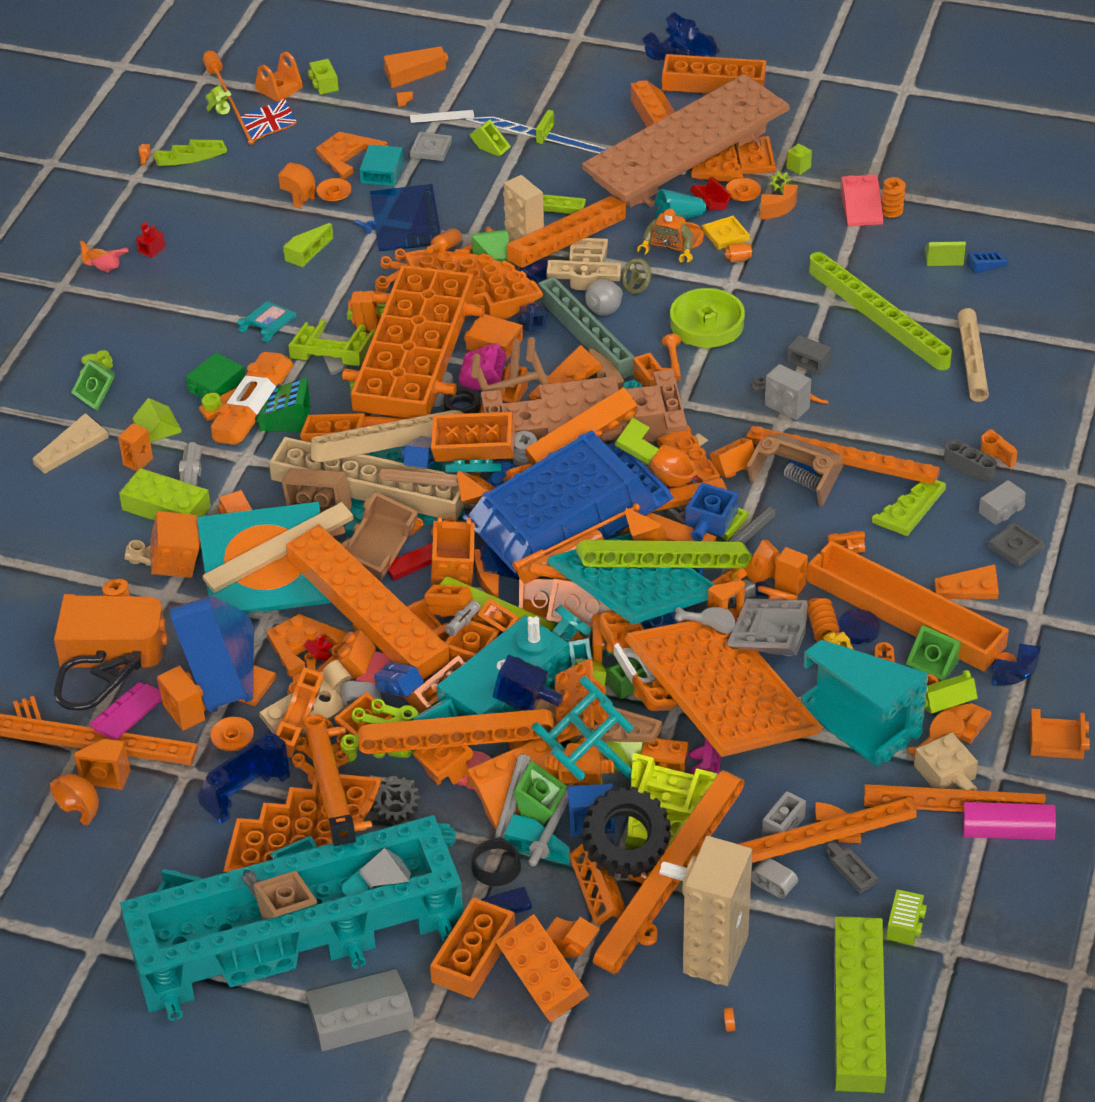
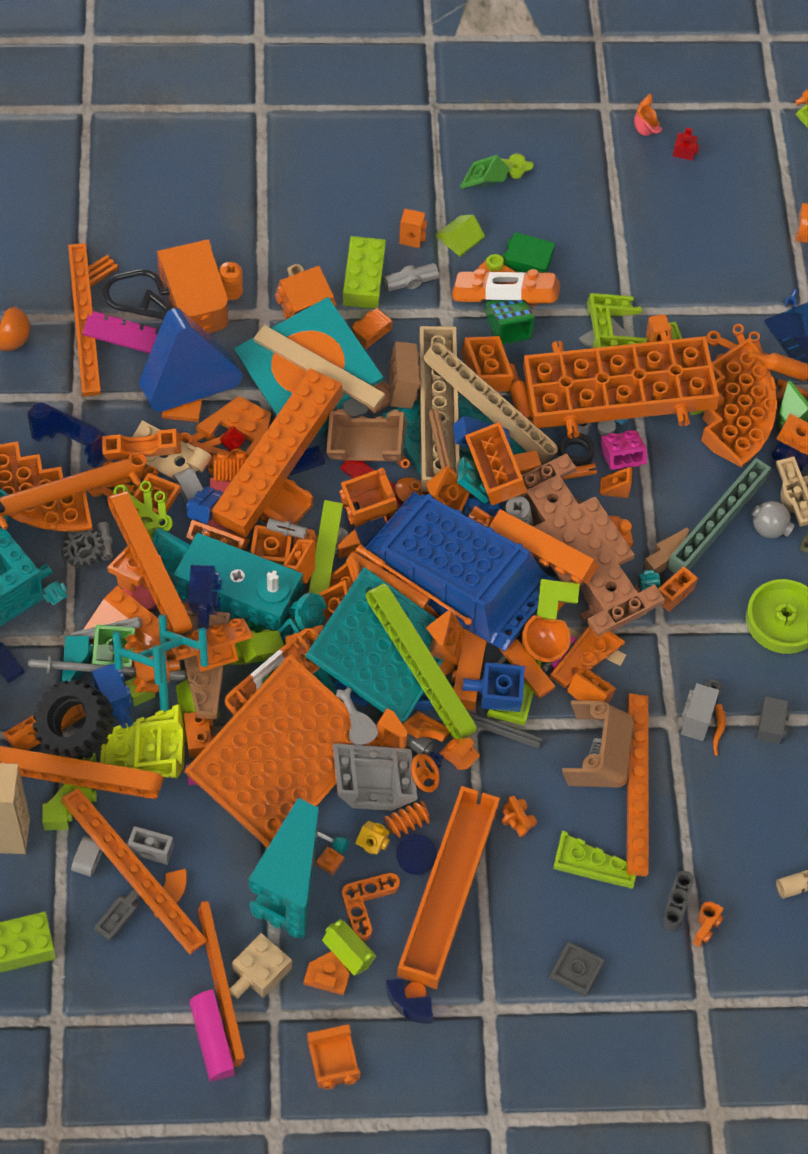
camera: 65 degrees right, 15 degrees up
(72, 442) = (411, 185): tan wing -> none
(104, 763) = (54, 336): orange slope -> none
(181, 697) = (134, 359): orange brick -> none
(232, 733) = (119, 405): orange dish -> none
(268, 318) = (628, 268): teal flag -> none
(307, 245) = (737, 262): lime slope -> none
(447, 599) = (312, 513): orange brick -> none
(492, 330) = (678, 448): orange brick -> none
(499, 878) = (56, 654): black tyre -> none
(514, 379) = (606, 472): medium nougat piece -> none
(532, 317) = (715, 469): dark blue brick -> none
(578, 361) = (647, 522): orange wing -> none
(671, 342) = (701, 610): orange piece -> none
(790, 571) = (452, 775): orange brick -> none
(905, 917) = (73, 972): lime brick -> none
(934, 653) = (395, 925): bright green slope -> none
(942, 725) = (308, 954): orange piece -> none
(970, 584) = (508, 939): orange wing -> none
(1002, 502) = (629, 943): light grey brick -> none

